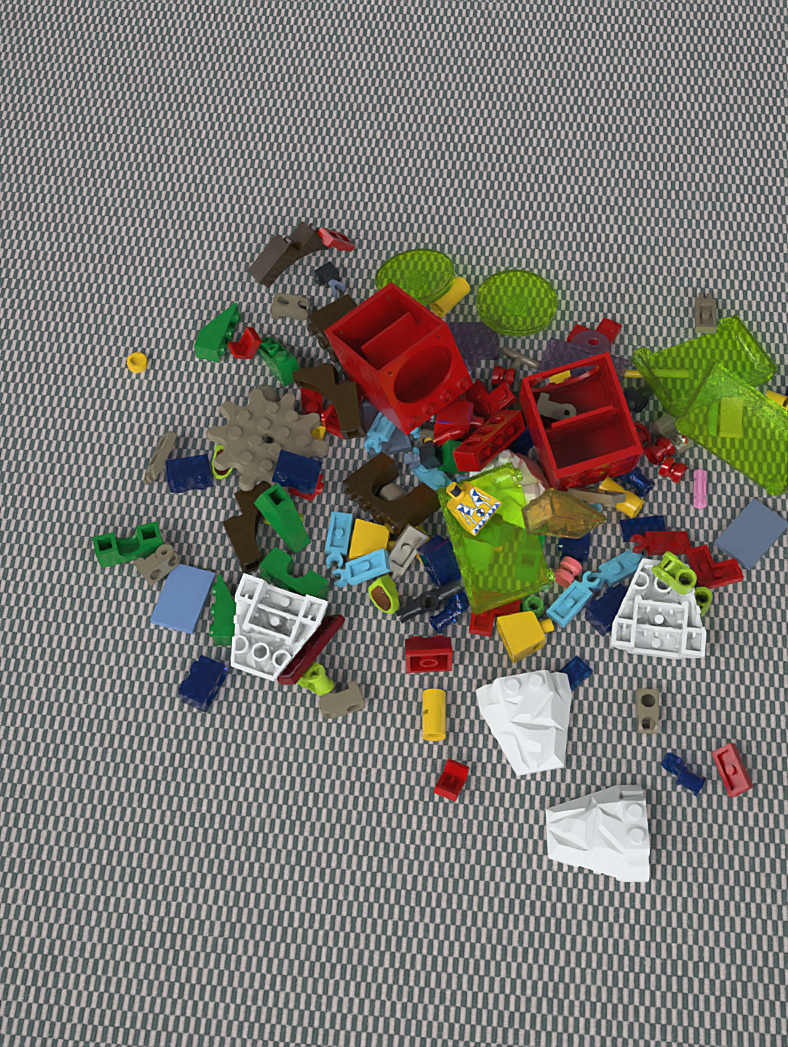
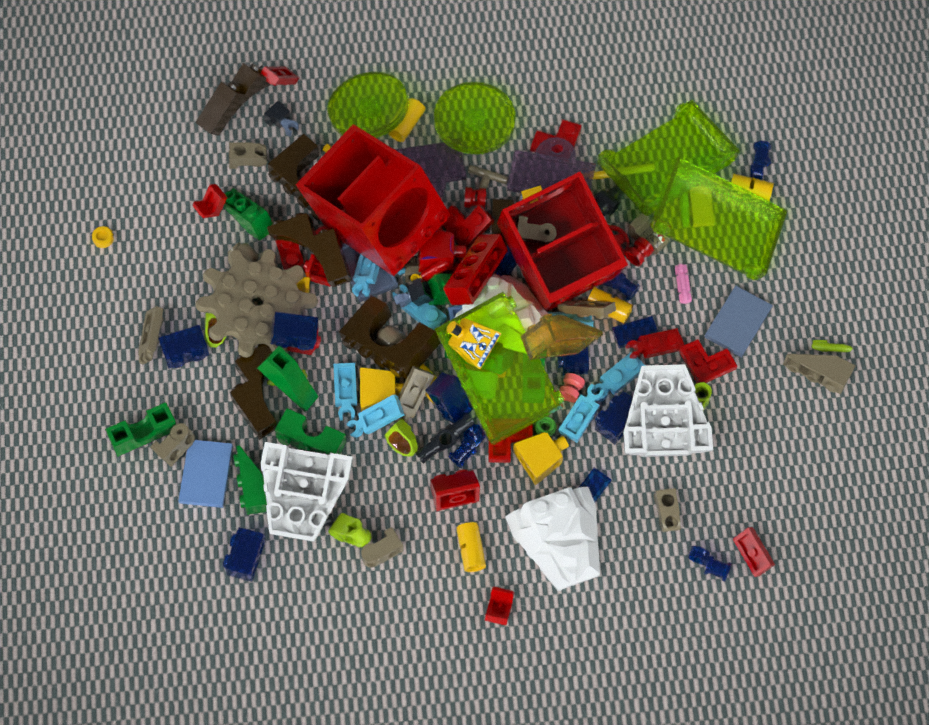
camera: 15 degrees left, 5 degrees up
(214, 337) = (176, 199): green slope -> none
(311, 649) = (343, 506): dark red tile -> none
(602, 833) = (645, 630): white wedge -> none
(672, 470) = (659, 271): red wheel -> none
(673, 572) = (673, 375): lime piece -> none
(705, 314) = (661, 102): dark tan hinge -> none

